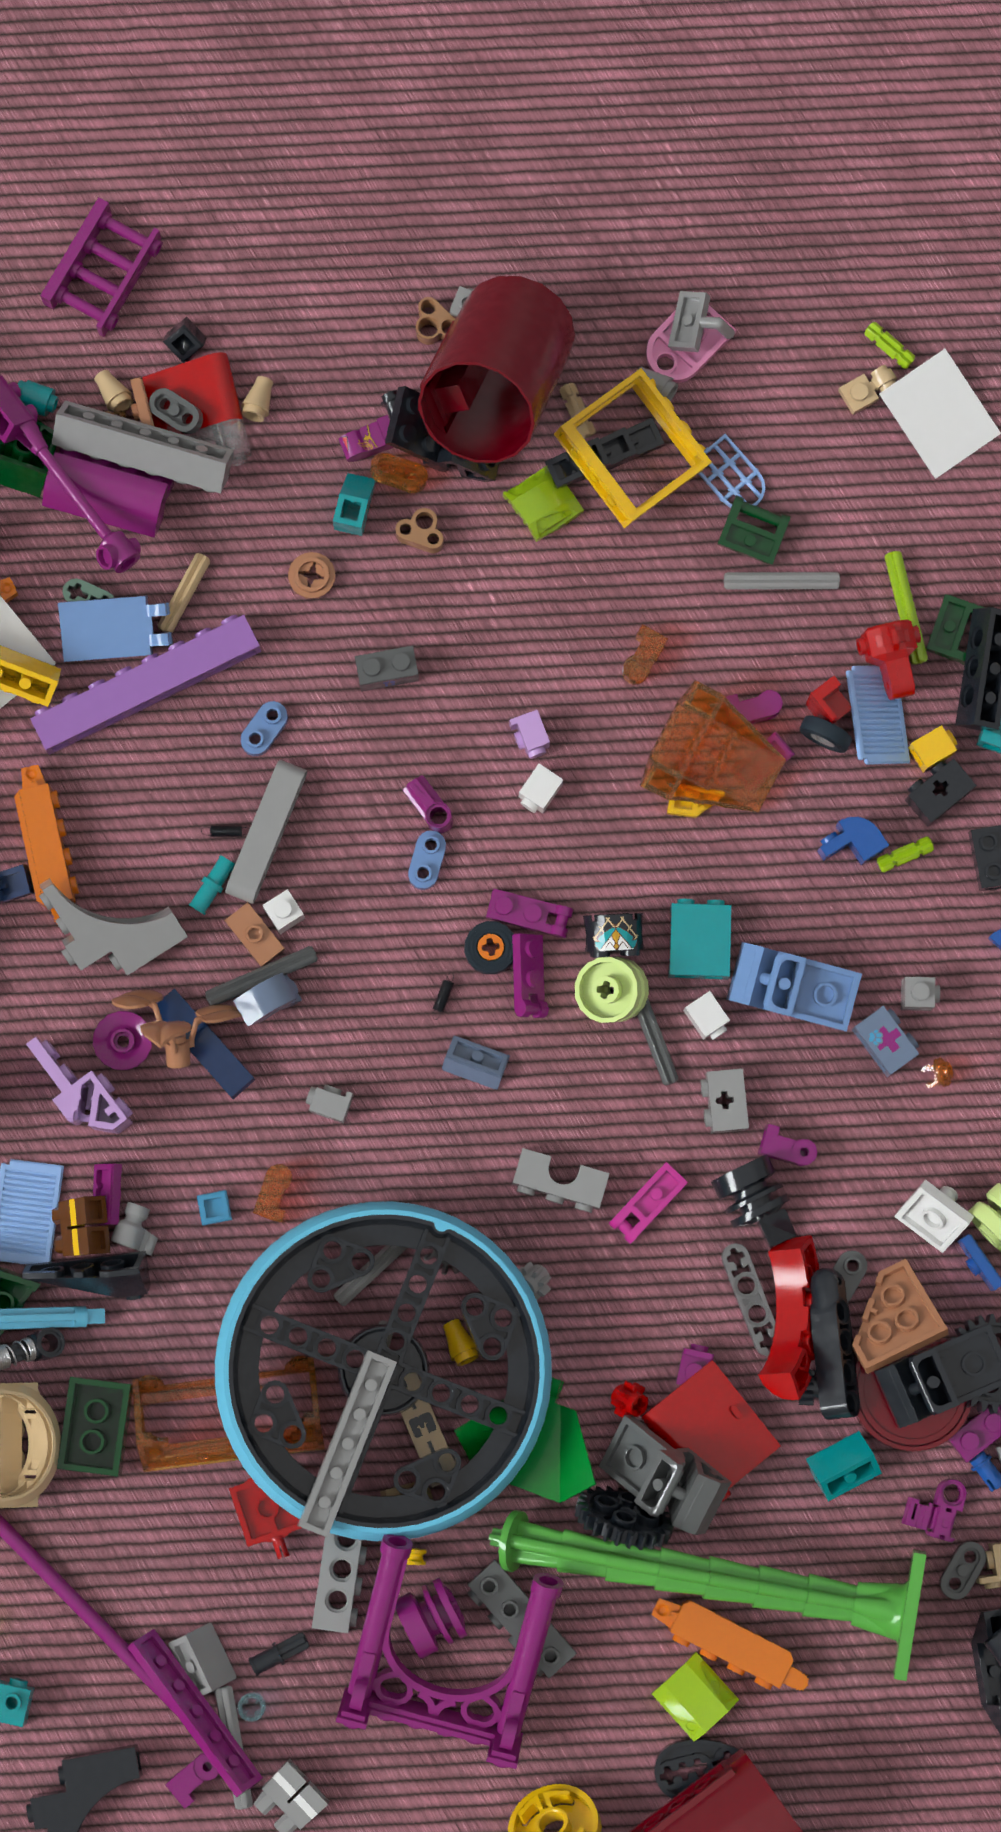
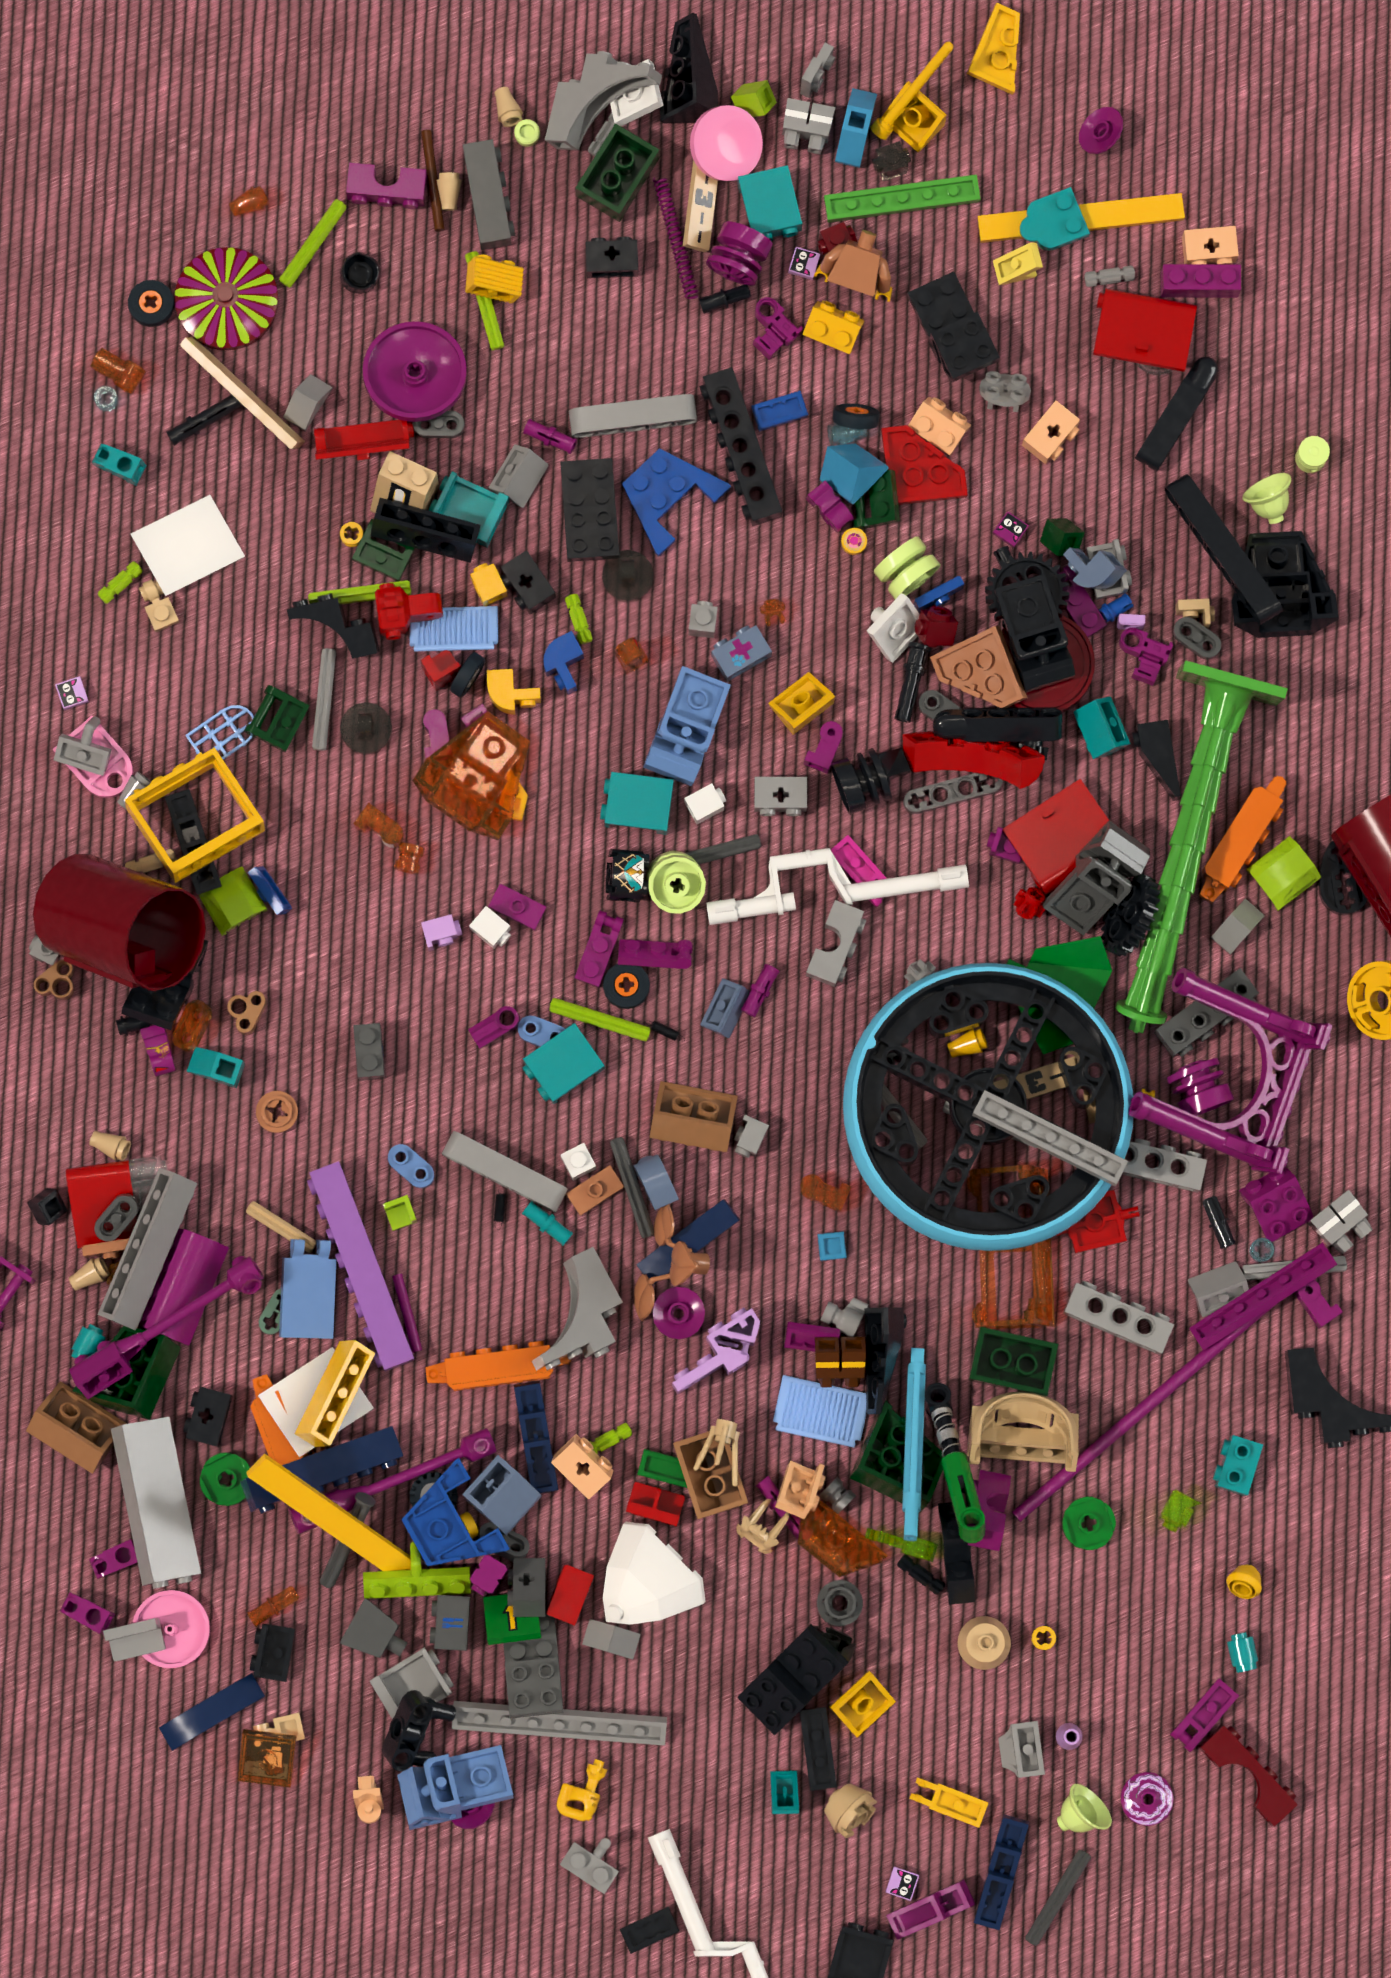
camera: 85 degrees left, 0 degrees up
(99, 740) = (407, 1313): none -> magenta bar
(135, 1589) = (1078, 1309): none -> light grey brick
(210, 721) = (400, 1213): none -> lime panel
(306, 1720) = (1277, 1203): none -> magenta bracket
(347, 1036) = (693, 1116): none -> medium nougat slope
(393, 884) = (562, 1064): none -> teal panel
(448, 921) = (599, 1019): none -> lime axle
(498, 1099) = (760, 990): none -> magenta pin
(558, 541) = (269, 891): none -> blue plate
(568, 817) = (517, 907): none -> magenta plate
(601, 1103) = (773, 901): none -> white piece
(610, 691) = (409, 858): none -> clear orange wheel
(627, 1647) = (1237, 926): none -> light grey slope
(753, 630) = (366, 728): none -> clear smoke tile
(759, 306) = (72, 693): none -> tile
(811, 776) = (504, 696): none -> yellow brick
(822, 1534) = (1157, 752): none -> black slope
(836, 1116) = (802, 702): none -> yellow slope
(854, 610) = (328, 610): none -> black arch
(869, 916) = (630, 655): none -> clear orange leg
(887, 1241) = (913, 671): none -> black pin
(940, 1262) = (936, 627): none -> dark red brick
(960, 905) = (628, 576): none -> clear smoke tile
(973, 1488) = (1127, 621): none -> lavender tile
(979, 584) = (353, 526): none -> yellow bush

